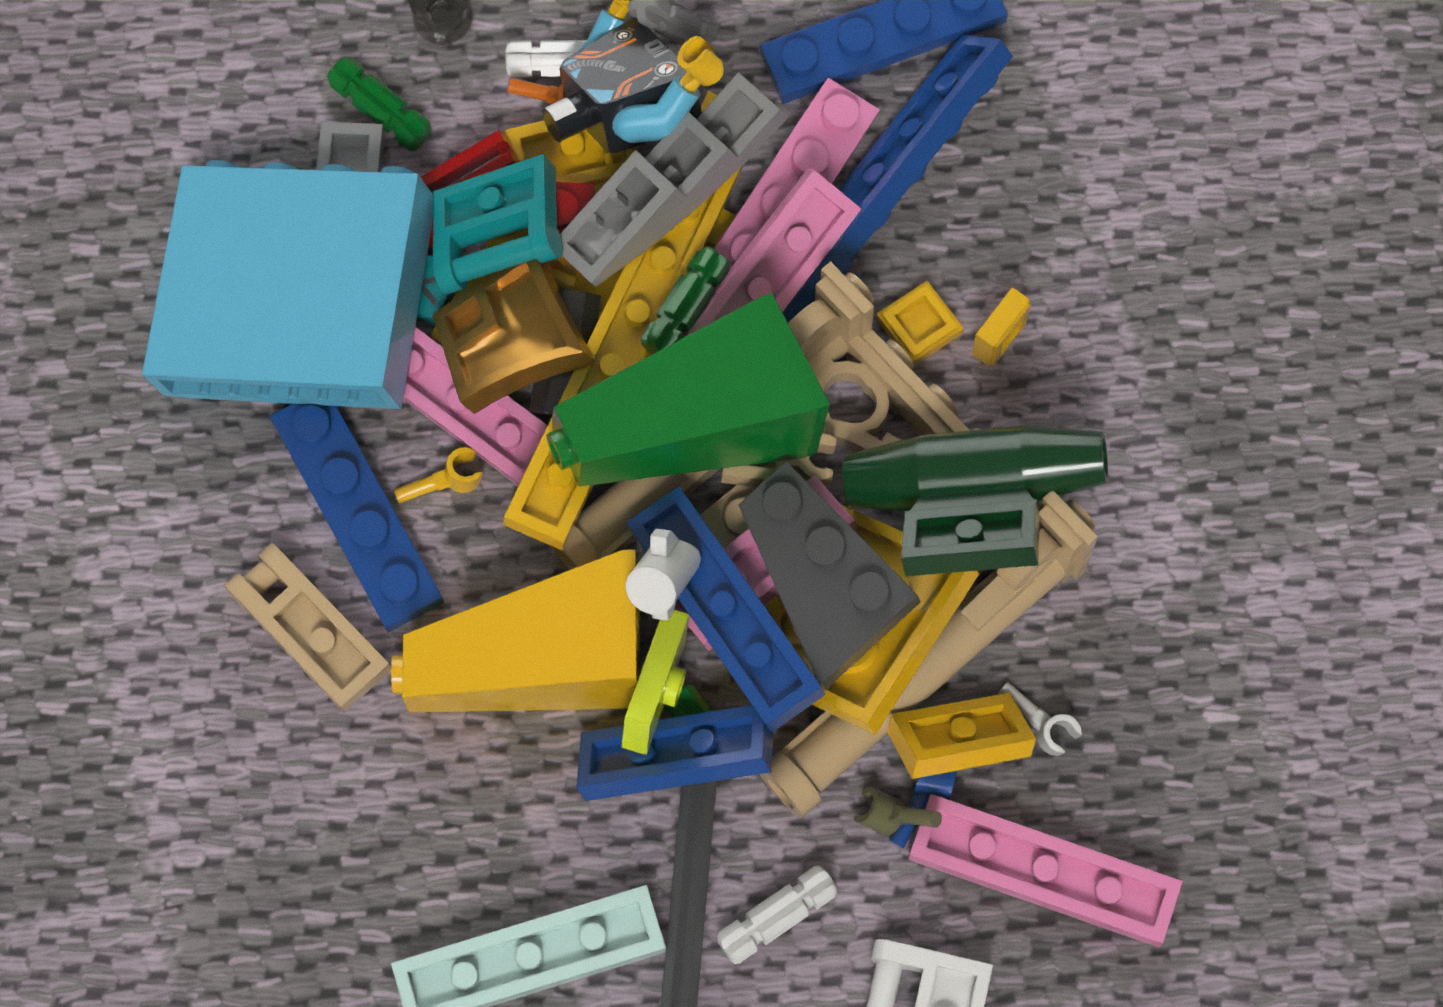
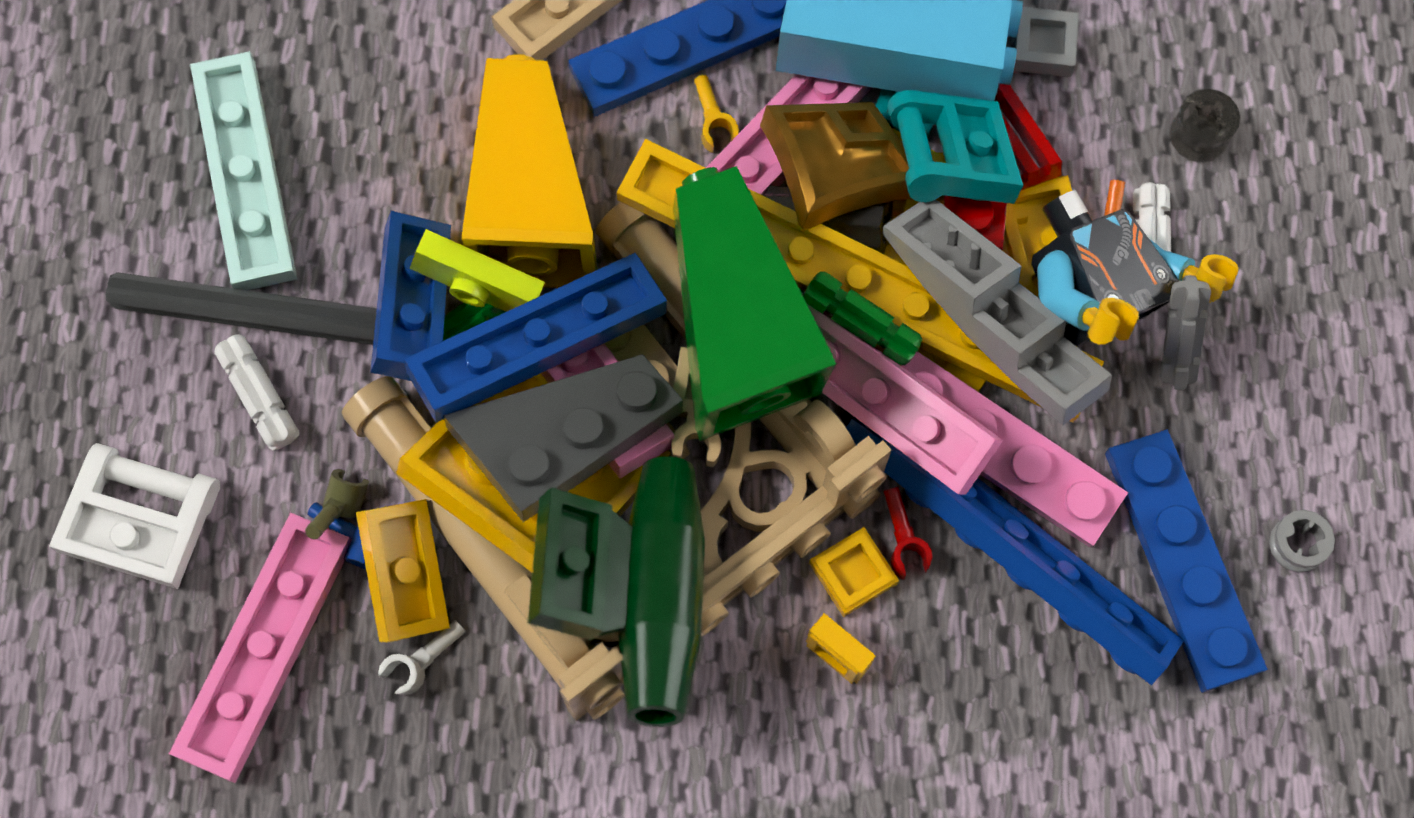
camera: 90 degrees right, 0 degrees up
(379, 103) = (1102, 71): green axle -> none
(662, 574) = (562, 266): white piece -> none
(886, 274) = (904, 534): none -> red hand

